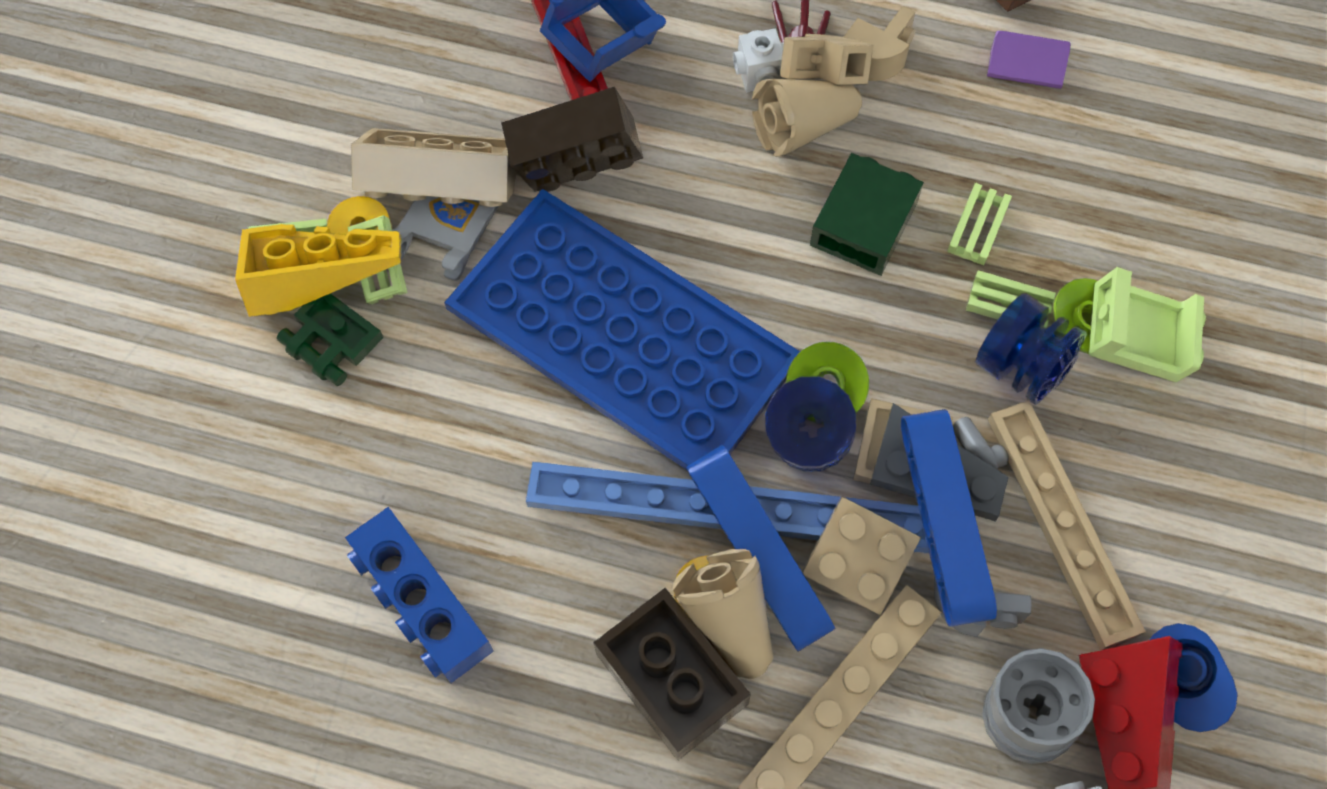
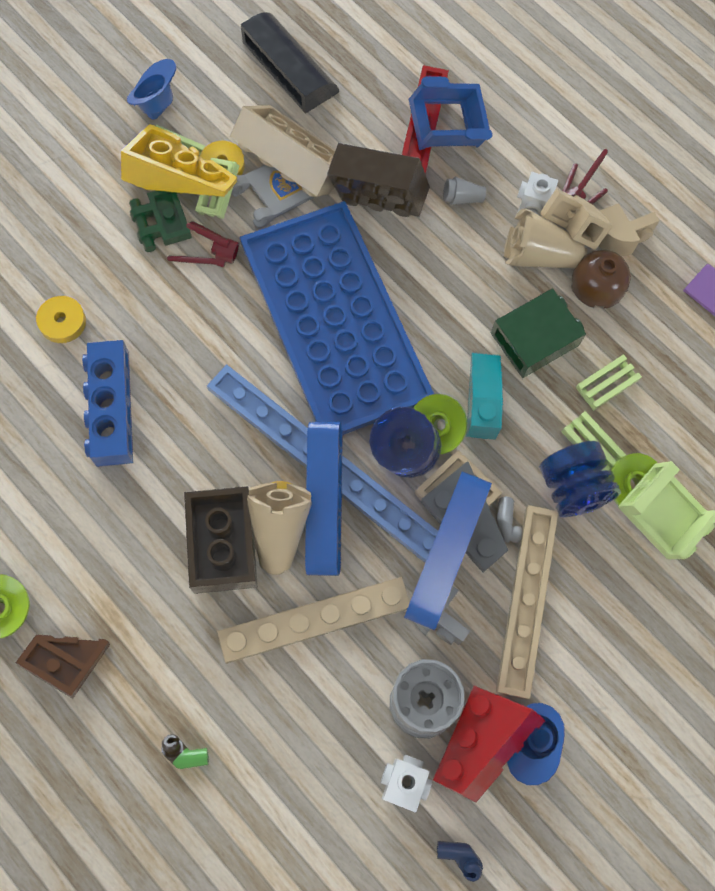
camera: 25 degrees right, 5 degrees up
(216, 183) = (153, 89): none -> blue piece
(297, 543) = (59, 307): none -> yellow piece
(360, 66) = (287, 61): none -> black brick
(432, 326) = (223, 248): none -> dark red plant
(670, 103) = (463, 192): none -> light grey cone
(858, 319) = (485, 397): none -> teal slope
(861, 555) = (384, 541): tan plate -> none
(893, 113) = (601, 279): none -> reddish brown cylinder

